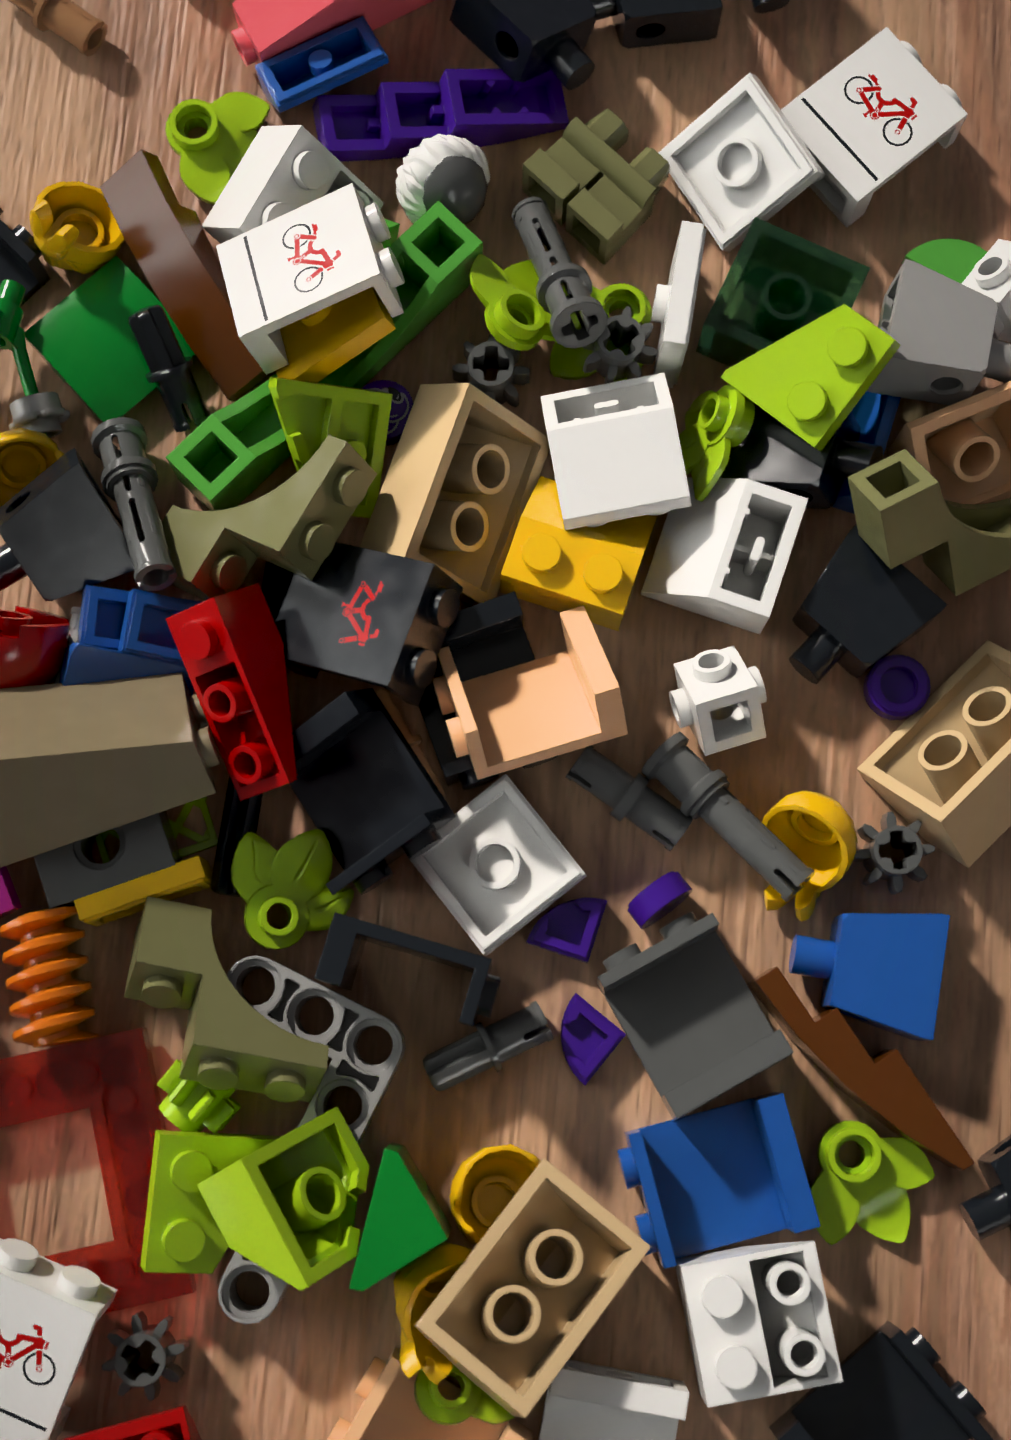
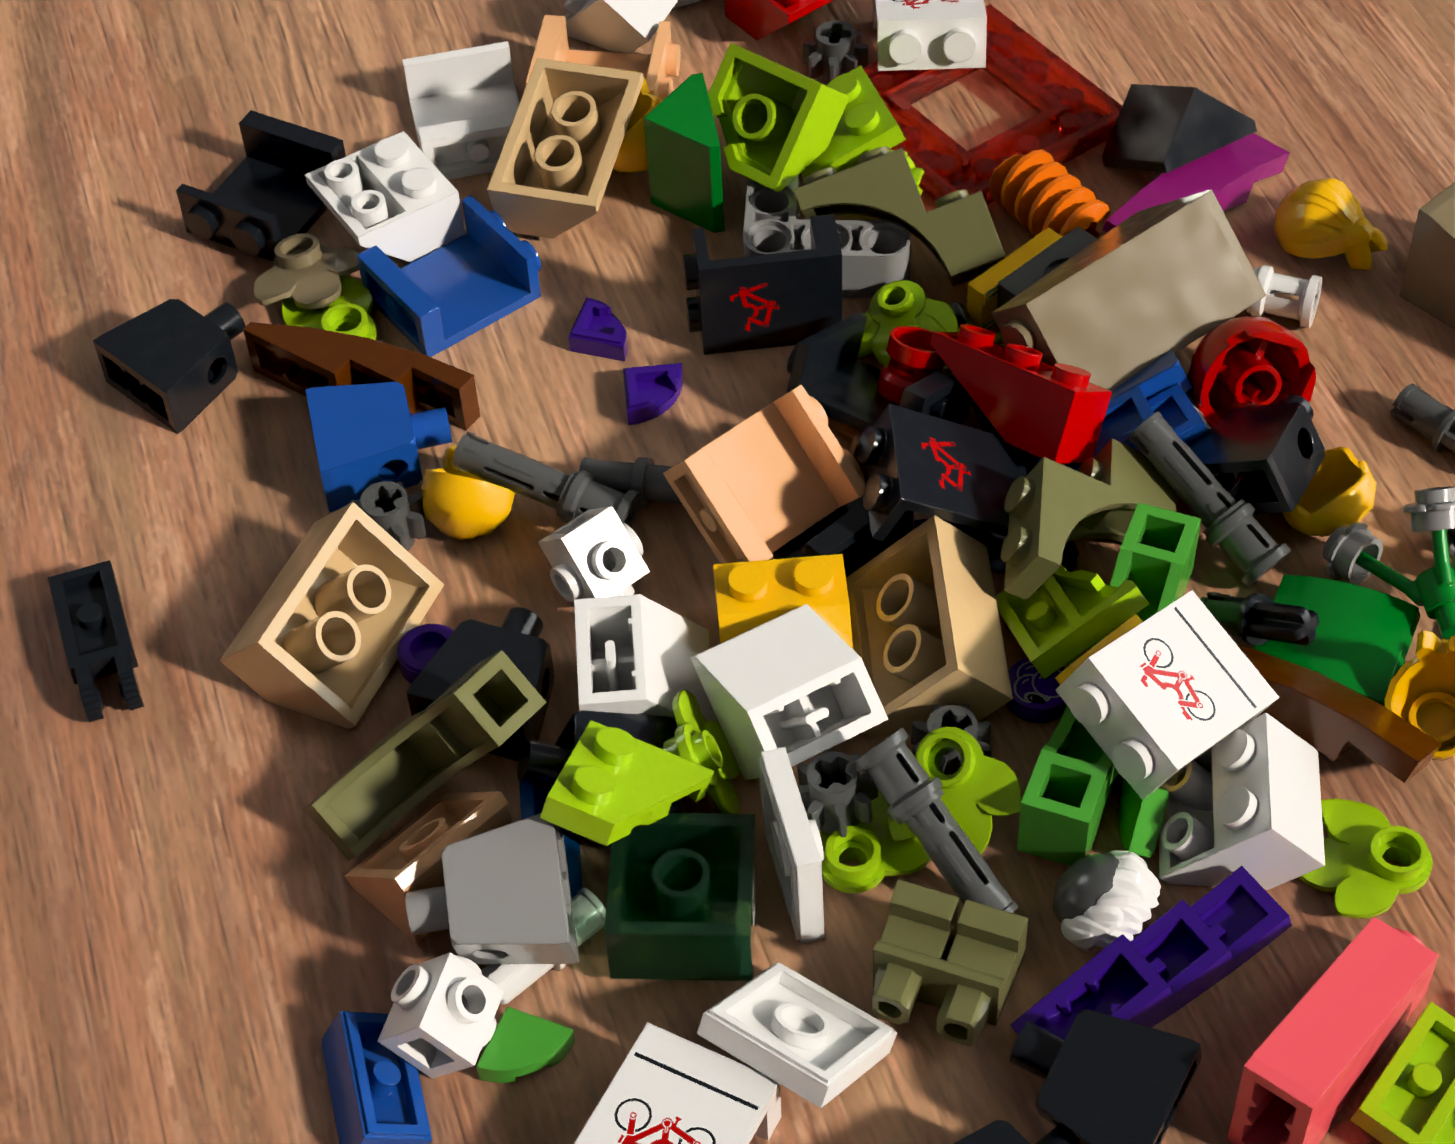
camera: 160 degrees right, 30 degrees down
(300, 806) = (909, 362): none -> red wheel
(320, 64) = (1300, 949): blue slope -> none
(487, 1047) = (663, 302): dark grey axle -> none
(487, 1185) = (627, 210): yellow hair -> none
(498, 865) = (720, 389): white plate -> none
(659, 899) = (581, 421): dark purple tile -> none
(690, 1015) = (519, 366): dark grey panel -> none
(874, 1249) = (305, 272): none -> dark tan plate

